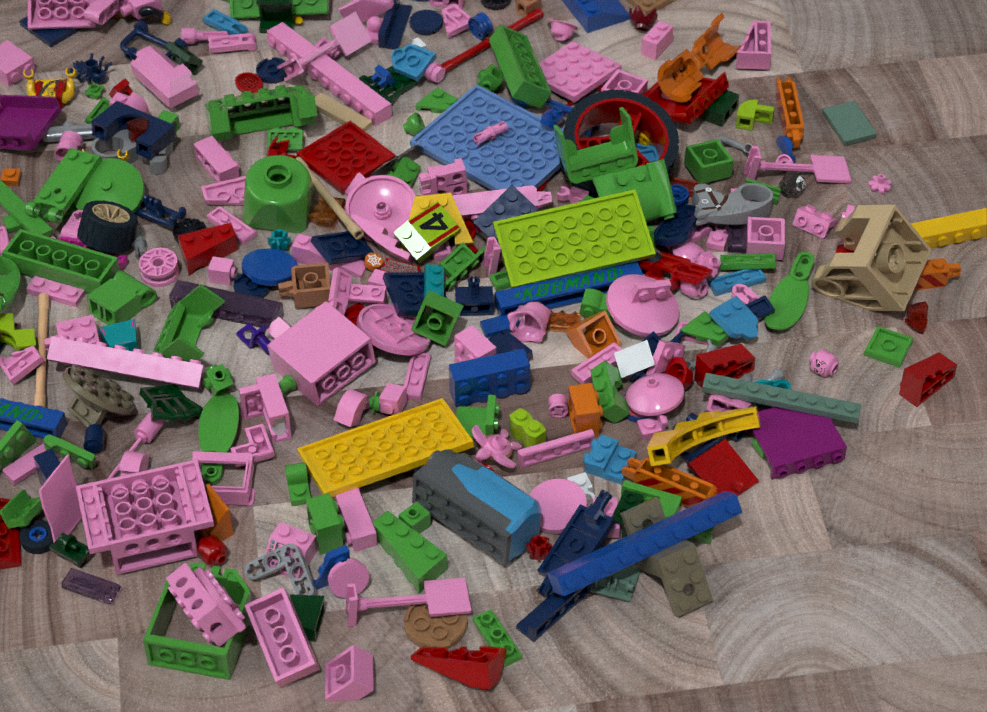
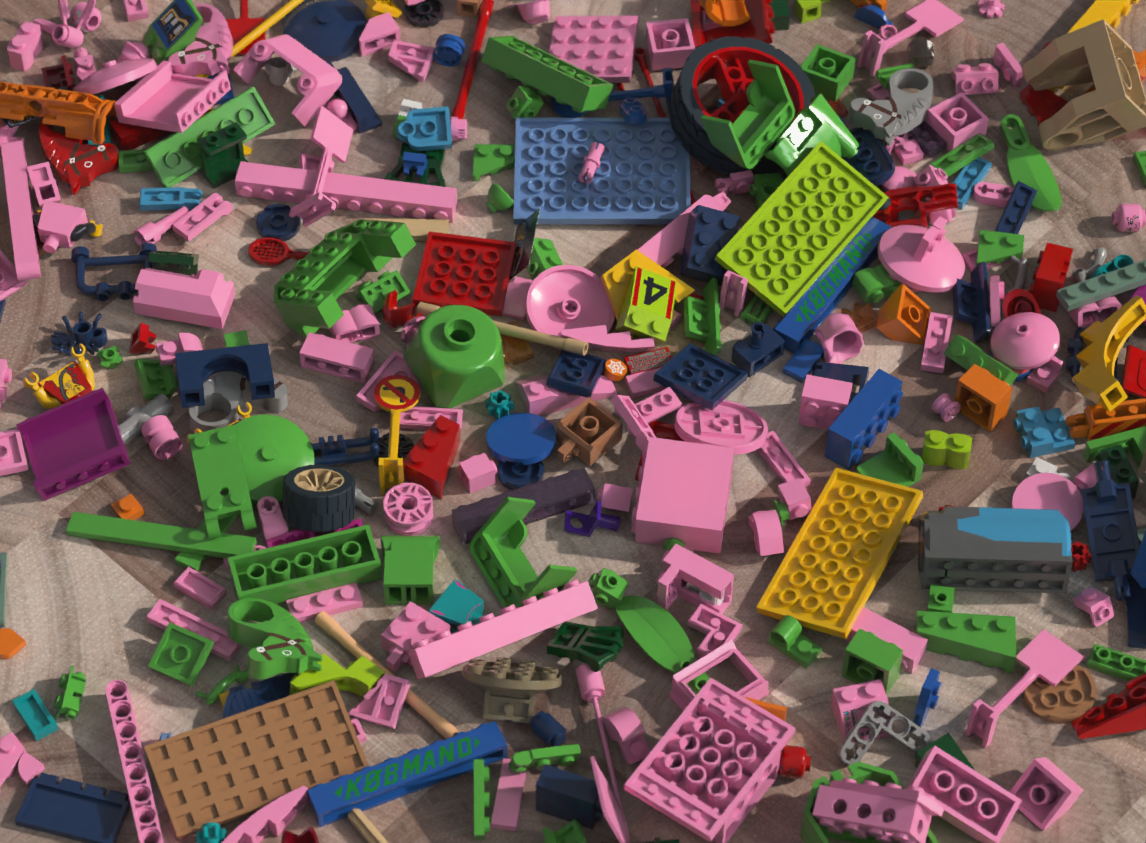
camera: 40 degrees left, 5 degrees up
(136, 128) = (232, 370): clear red tile -> none
(219, 199) = (394, 395): none -> yellow piece
(246, 148) = (356, 325): none -> bright pink brick
(348, 573) = (950, 700): bright pink tile -> none
(425, 22) = (381, 77): dark blue tile -> none
(434, 279) = (709, 358): teal plate -> none
(437, 318) = (756, 388): bright green brick -> none
(444, 179) = (601, 240): bright pink hips -> none
(495, 447) = (940, 485): bright pink animal -> none
(518, 587) = (1095, 604): none -> bright pink bracket
(555, 448) = (988, 451): bright pink tile -> none
(634, 358) = (971, 316): white sticker -> none
(735, 144) = (823, 41): light grey piece -> none
(735, 319) = (1019, 220): dark azure plate -> none

